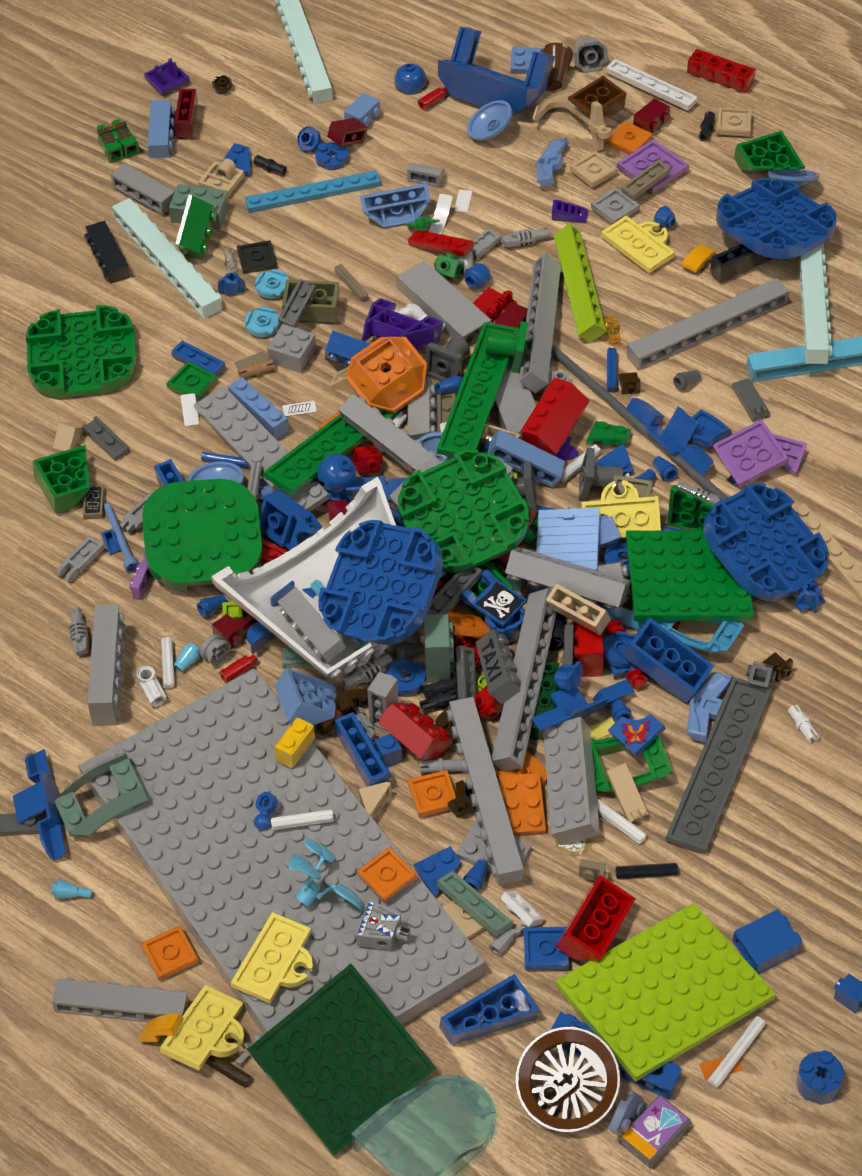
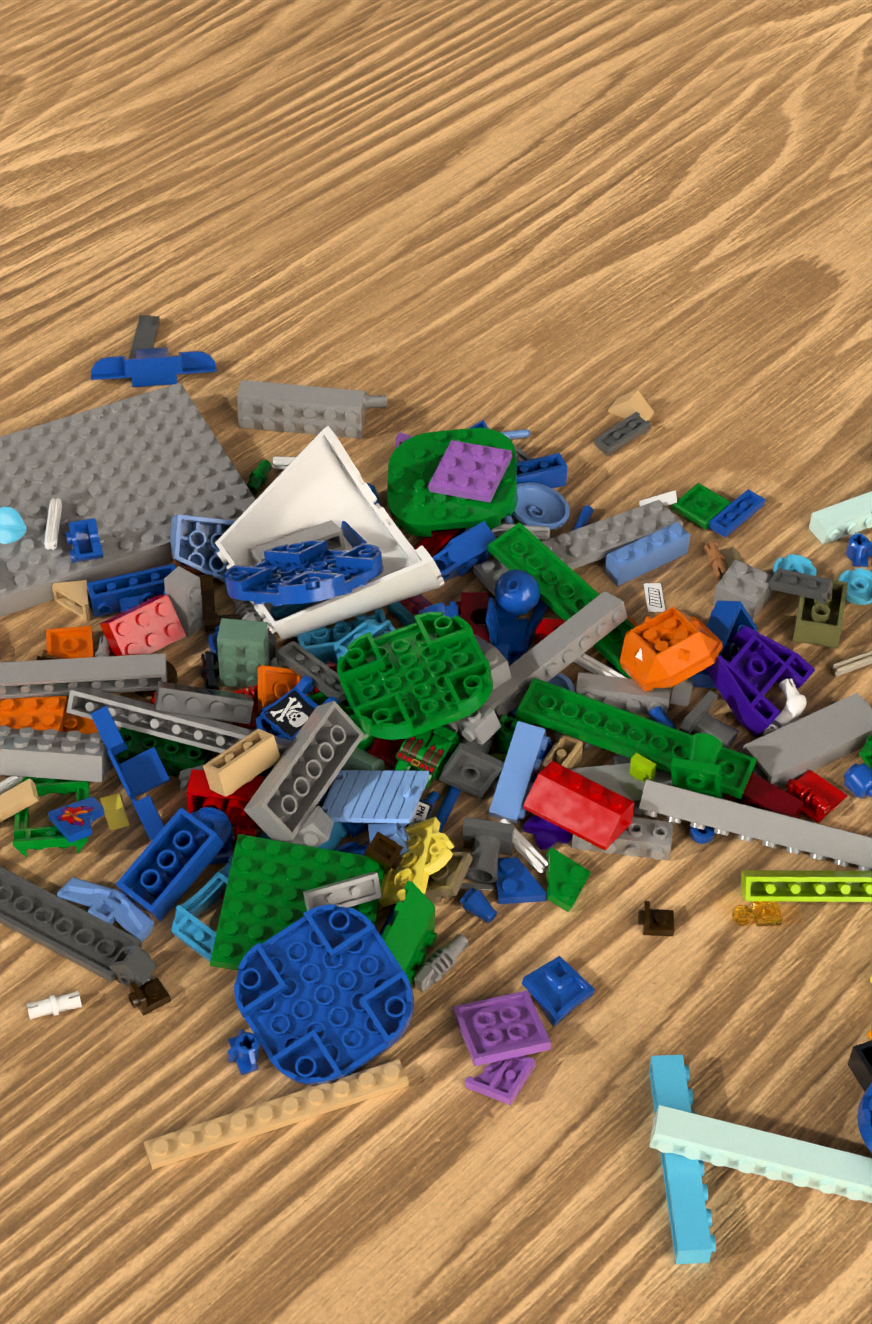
camera: 95 degrees right, 5 degrees down
(63, 477) = (562, 390): green wedge -> none
(67, 890) = (53, 377): medium azure cone -> none
(80, 558) = (455, 407): light grey hinge -> none
(81, 352) = (754, 421): green plate -> none
(93, 502) = (535, 422): tile -> none
(128, 784) = (140, 404): sand green wedge -> none
(151, 686) = (280, 445): white piece -> none
(191, 692) = (258, 476): none -> green pin
(204, 510) = (470, 471): none -> medium lavender plate
(266, 804) = (77, 497): blue plate -> none
(294, 742) = (144, 521): yellow brick -> none
(332, 783) = (85, 540): none -> blue cylinder
(438, 701) = (191, 667): black pin -> none
(465, 672) = (220, 679): dark grey plate -> none
(507, 385) = (642, 768): none -> lime plate
(568, 676) = (170, 765): blue piece -> none
(611, 369) = (685, 906): blue axle -> none
(619, 709) = (126, 823): blue cone -> none
(621, 409) = (577, 921): dark grey piece -> none
(627, 524) = (384, 852): none -> dark brown bracket
(665, 469) = (496, 932): blue cone -> none
(676, 434) = (548, 943): blue piece -> none
(676, 541) = (345, 892): none -> light grey plate
(686, 379) = (654, 984): dark grey cone -> none
(707, 324) = (760, 1032): light grey brick -> none
(750, 399) = (611, 1058): dark grey hinge -> none

